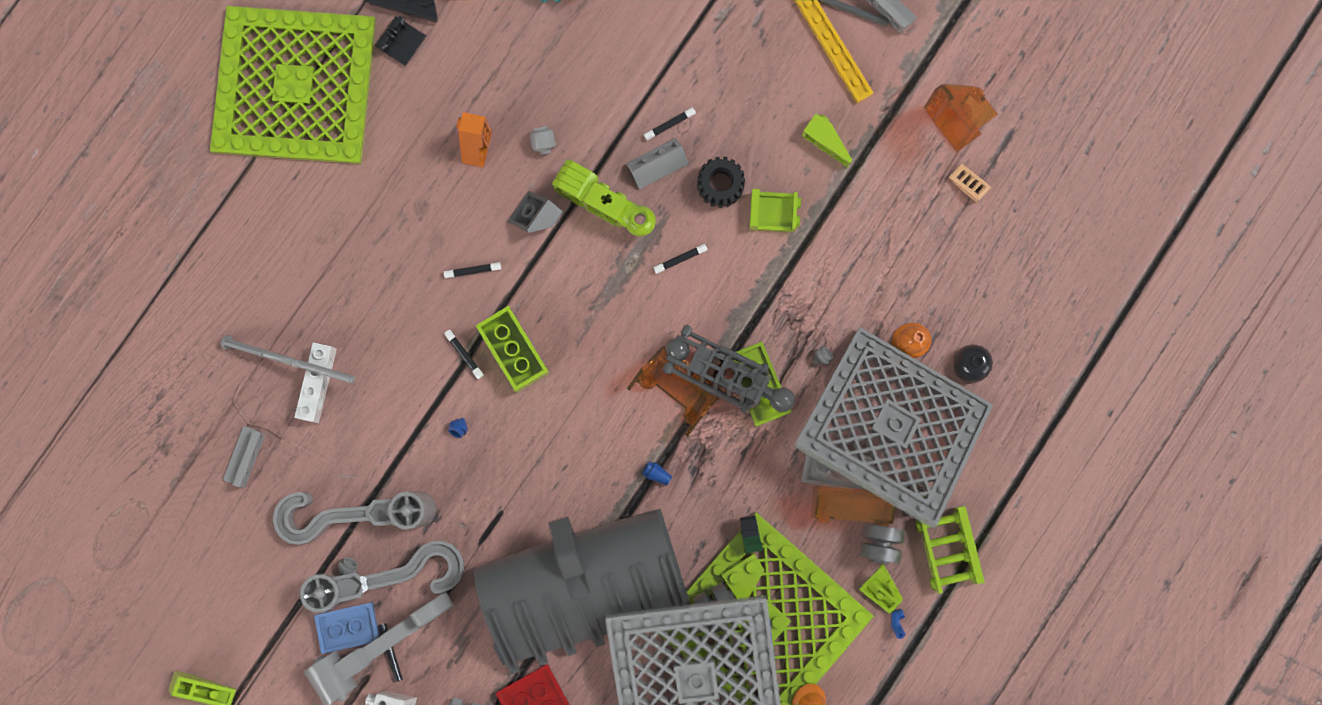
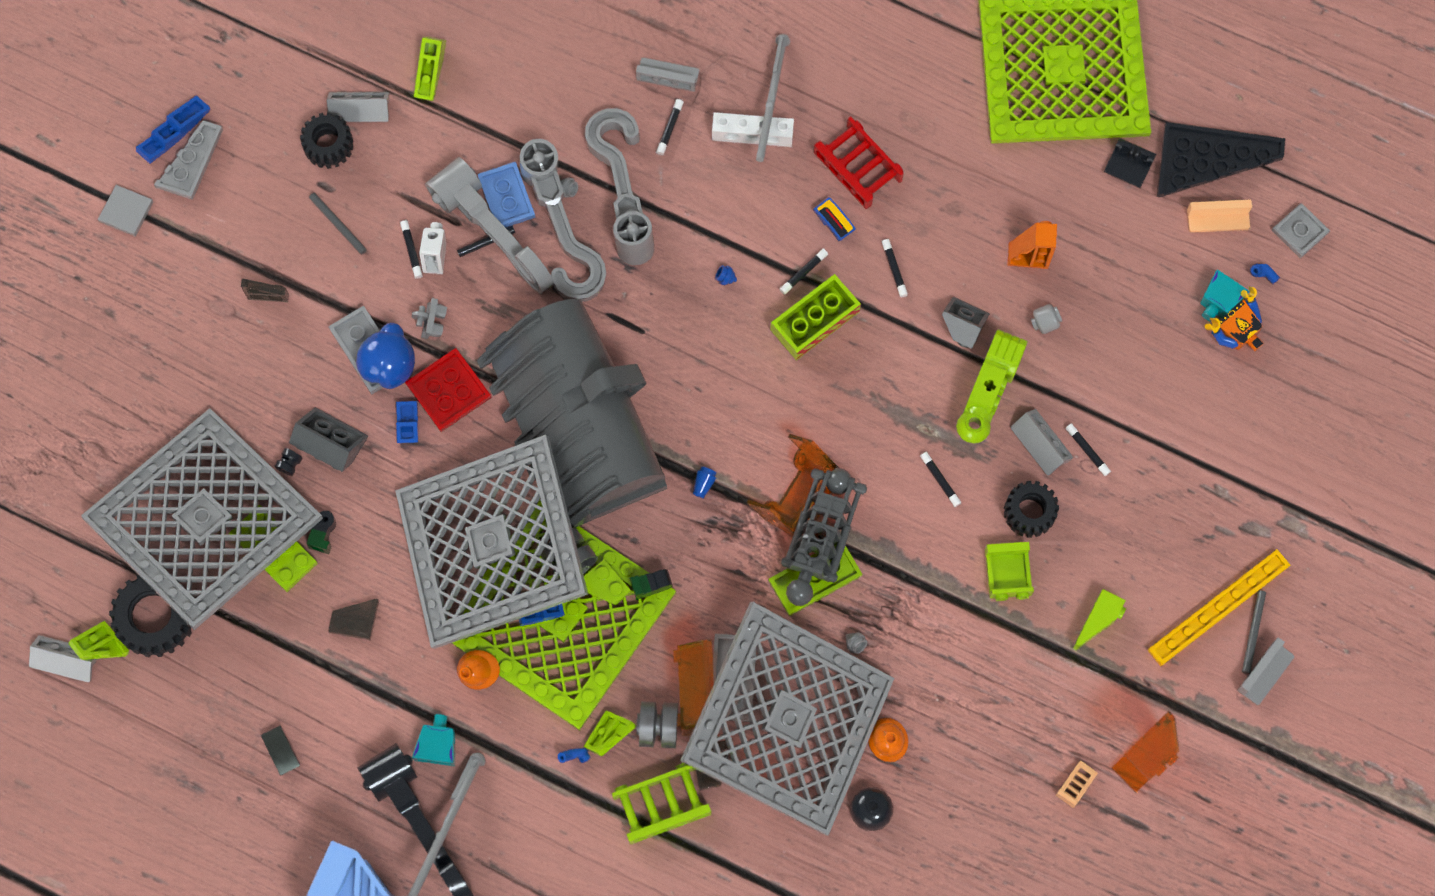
camera: 80 degrees right, 10 degrees down
(299, 461) = (669, 127): none -> black bar
(380, 296) = (851, 180): none -> red fence
(416, 318) = (834, 218): none -> slope

